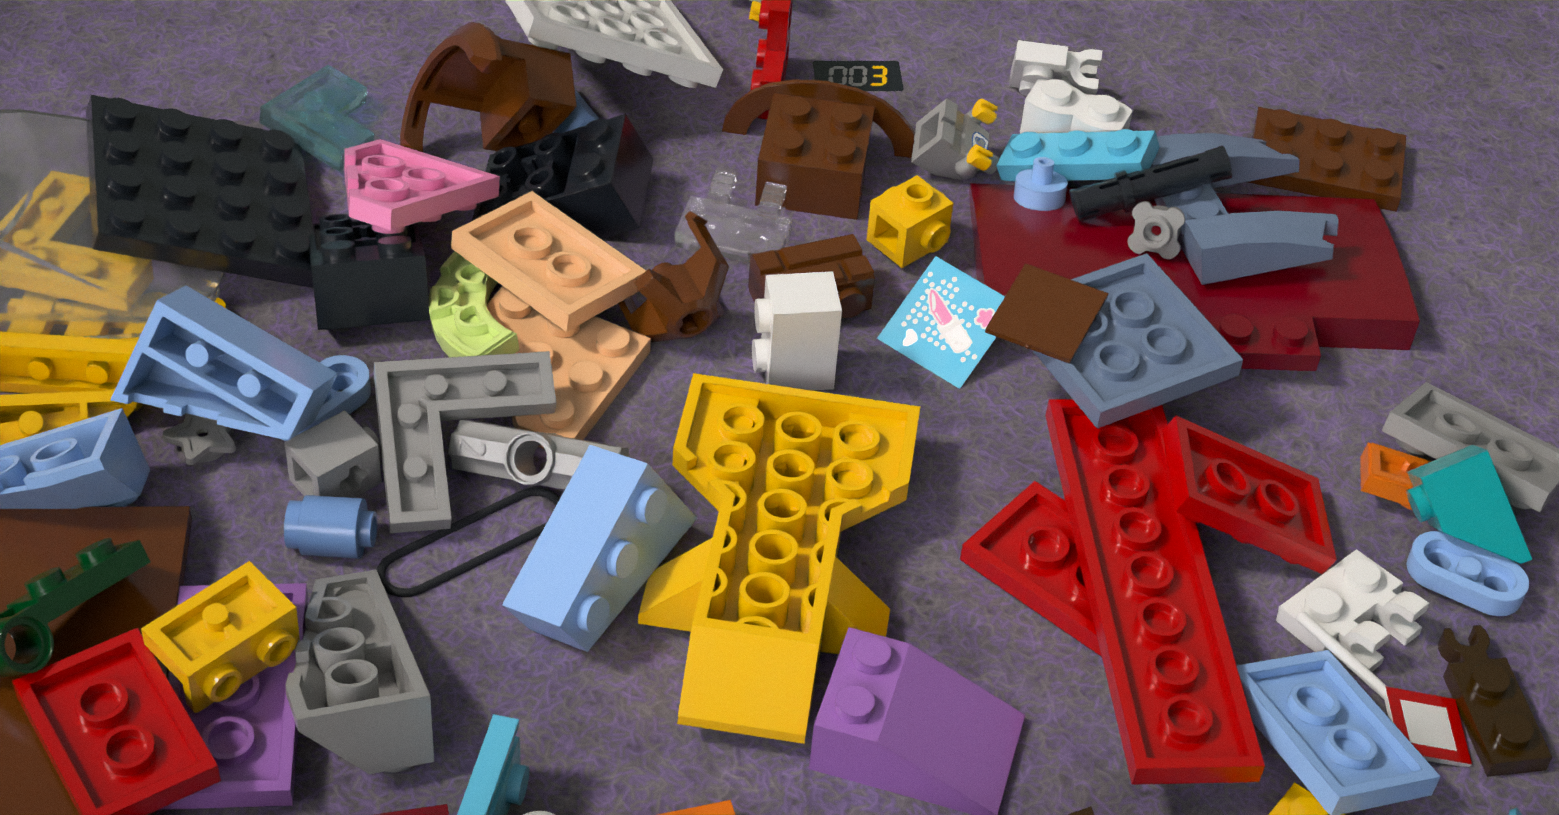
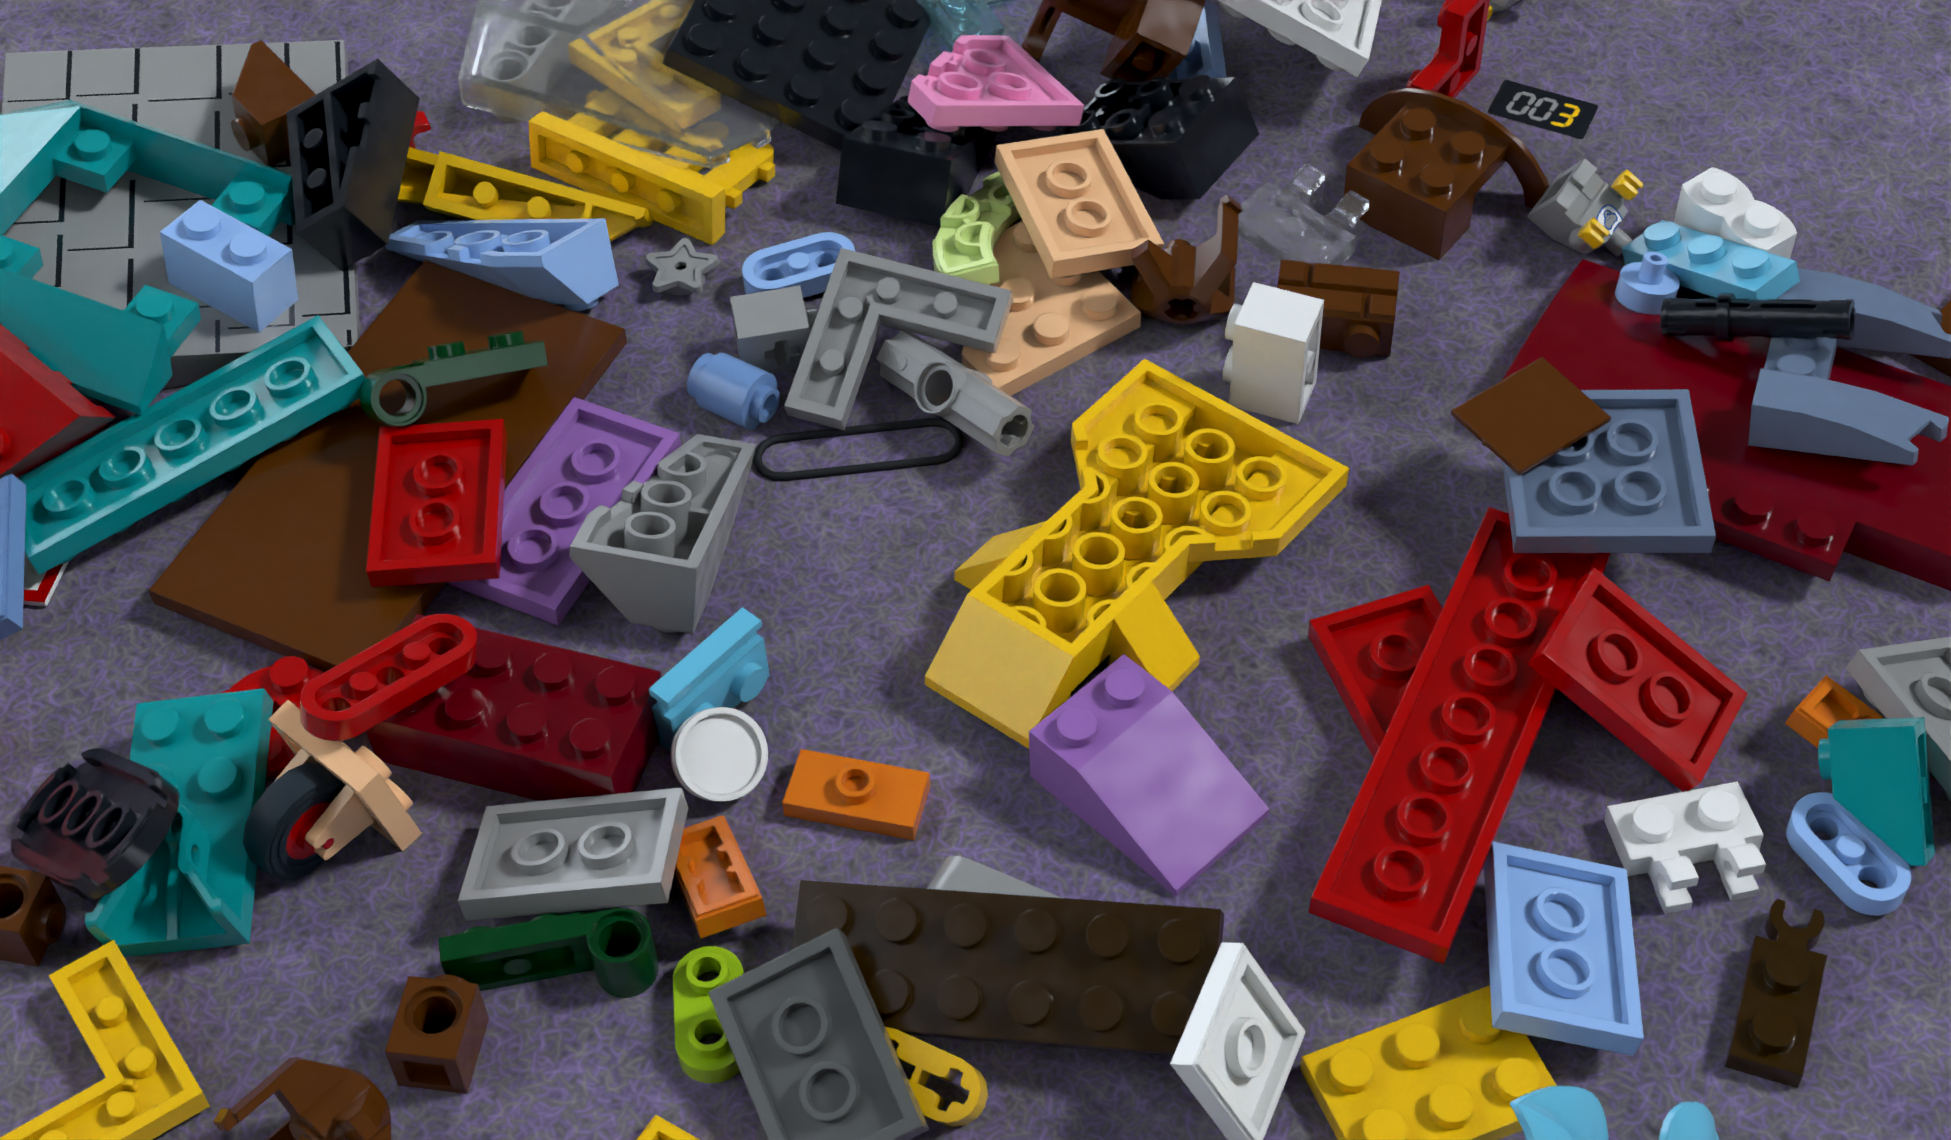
camera: 35 degrees right, 5 degrees up
(222, 368) = (706, 210): light blue wedge -> none
(224, 635) = (567, 452): yellow bracket -> none
(597, 548) = (944, 494): light blue wedge -> none
(909, 221) = (1478, 277): yellow brick -> none
(944, 322) = (1435, 385): medium azure sticker -> none
(1050, 61) = (1746, 161): white plate -> none
(1167, 219) = (1745, 369): light grey plate -> none
(1424, 719) = (1680, 981): white piece -> none

